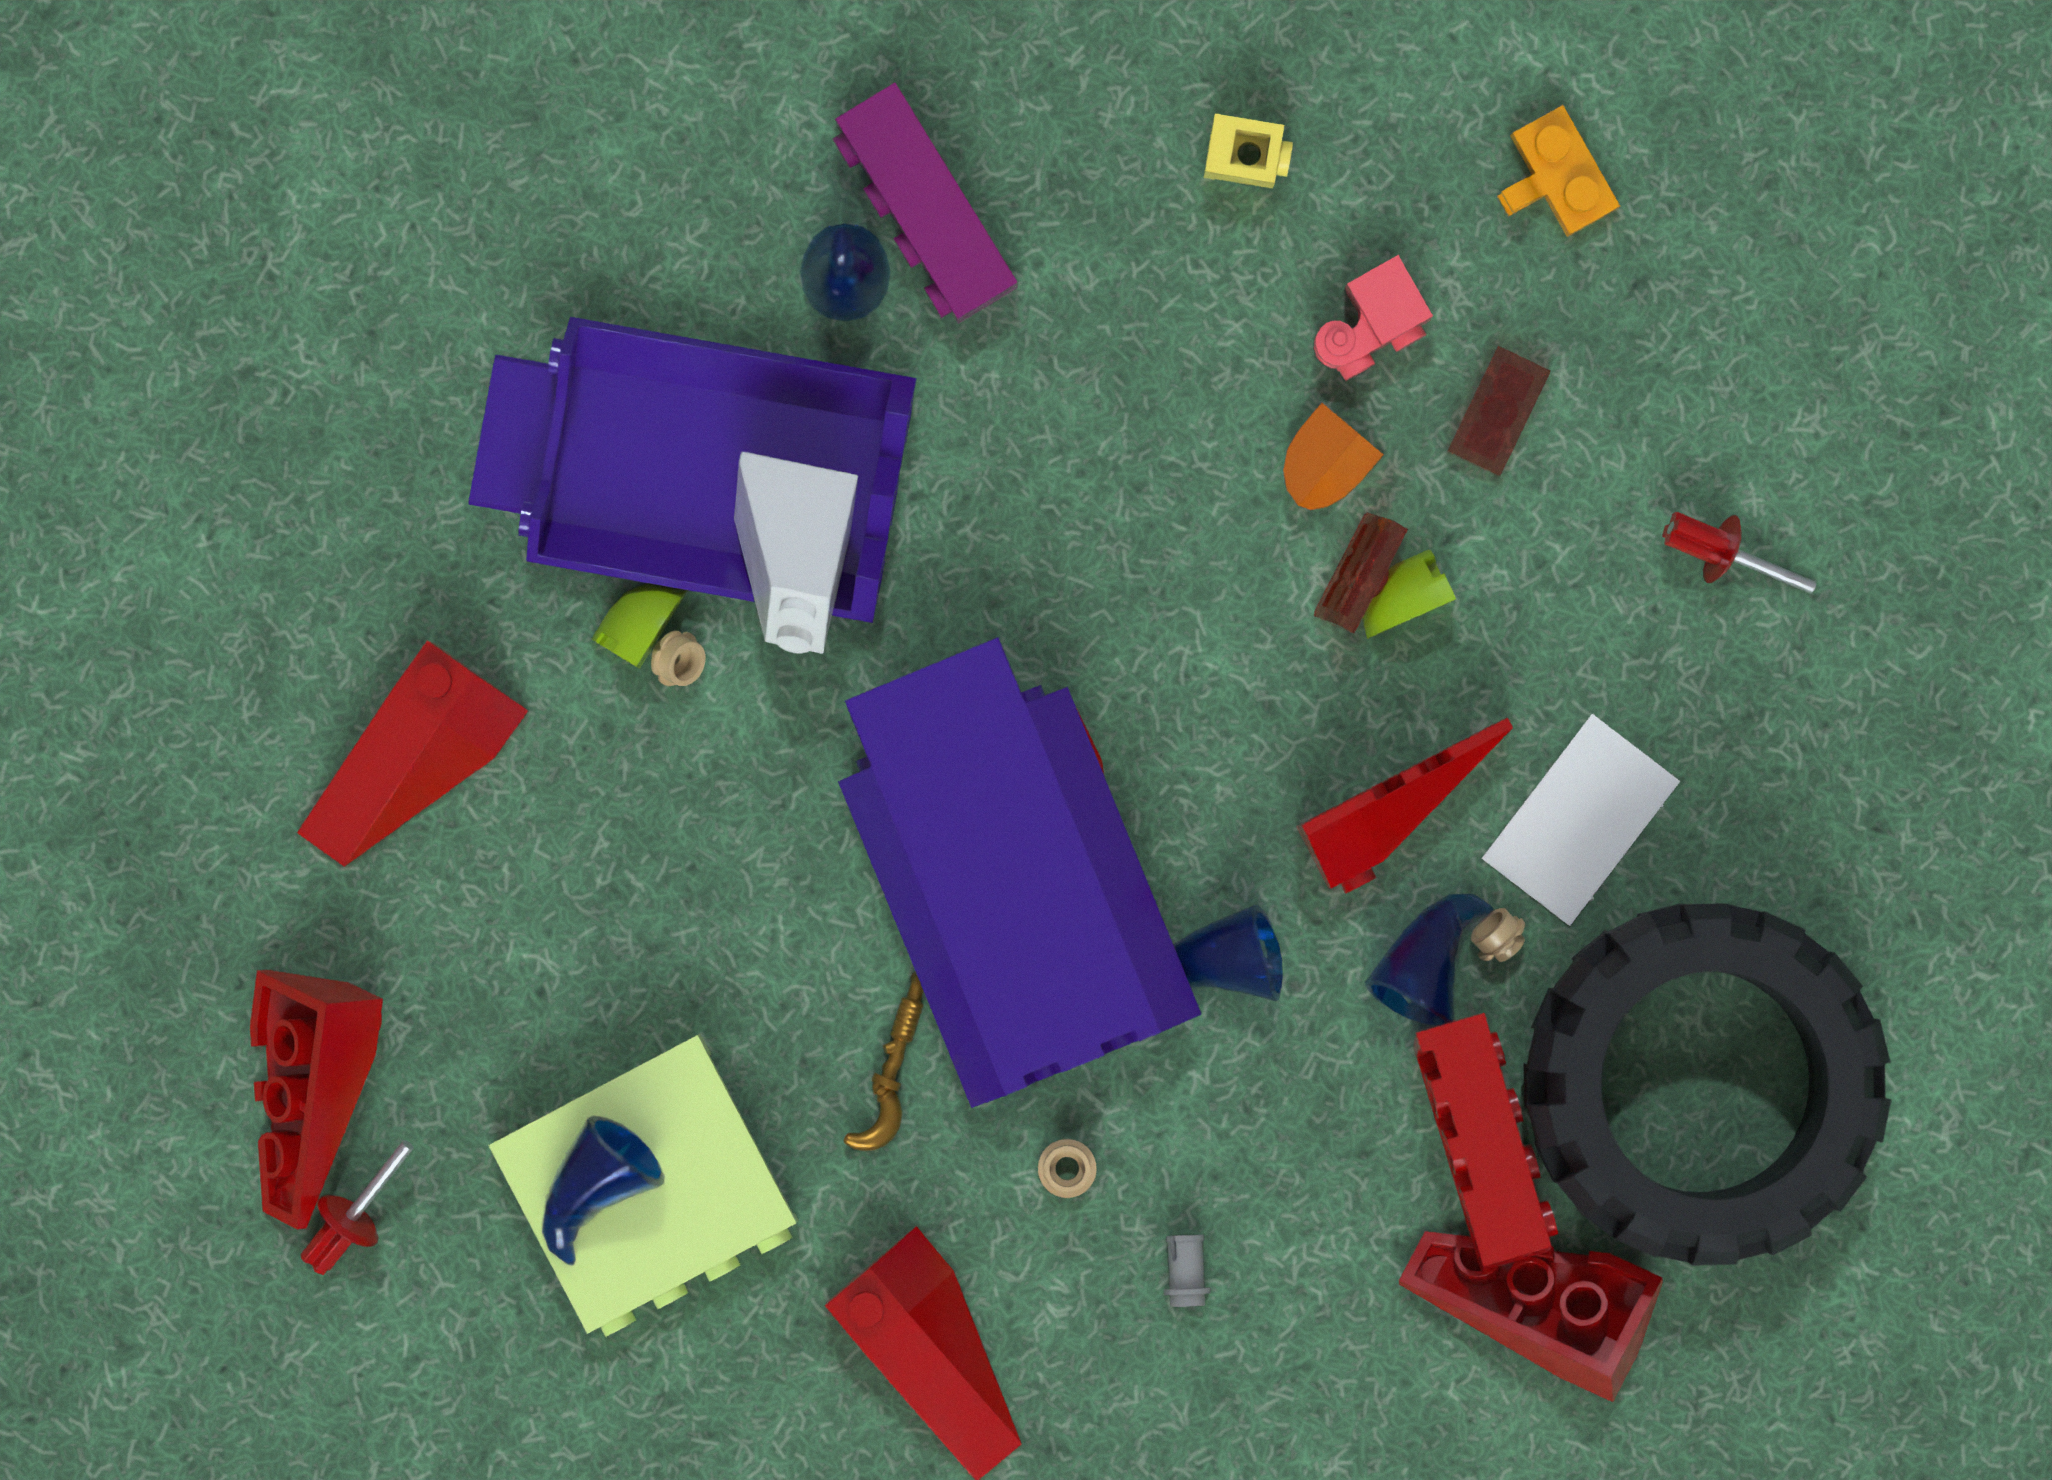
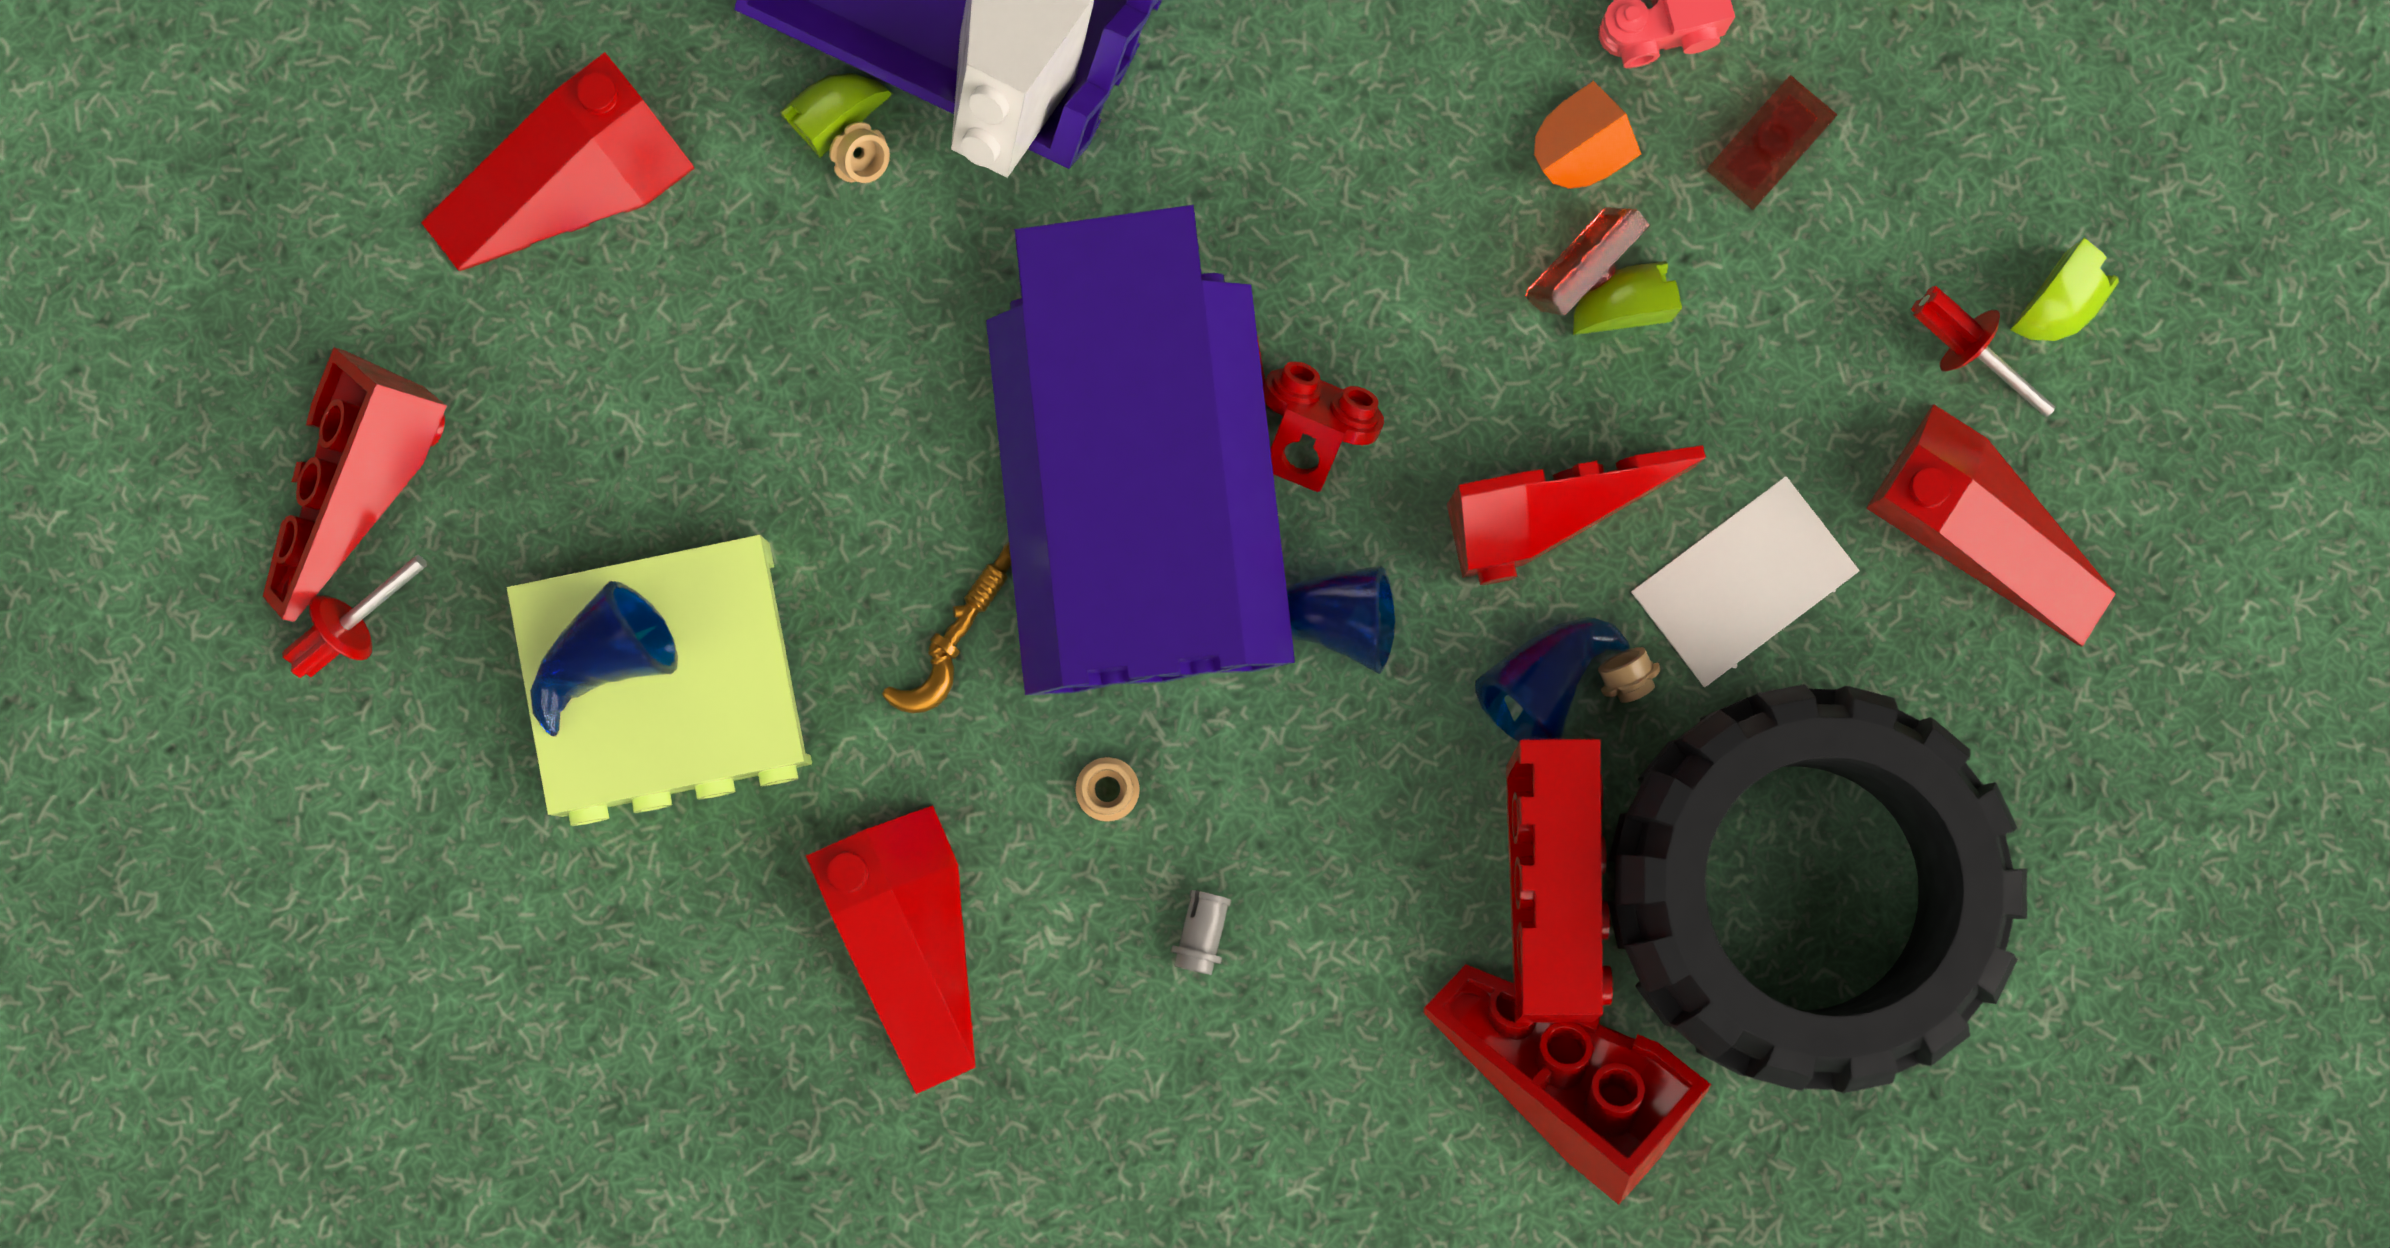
camera: 20 degrees right, 5 degrees down
(1159, 779) = (1319, 412): none -> red bracket
(1775, 702) = (1980, 516): none -> red wedge
(1800, 481) = (2068, 295): none -> lime brick

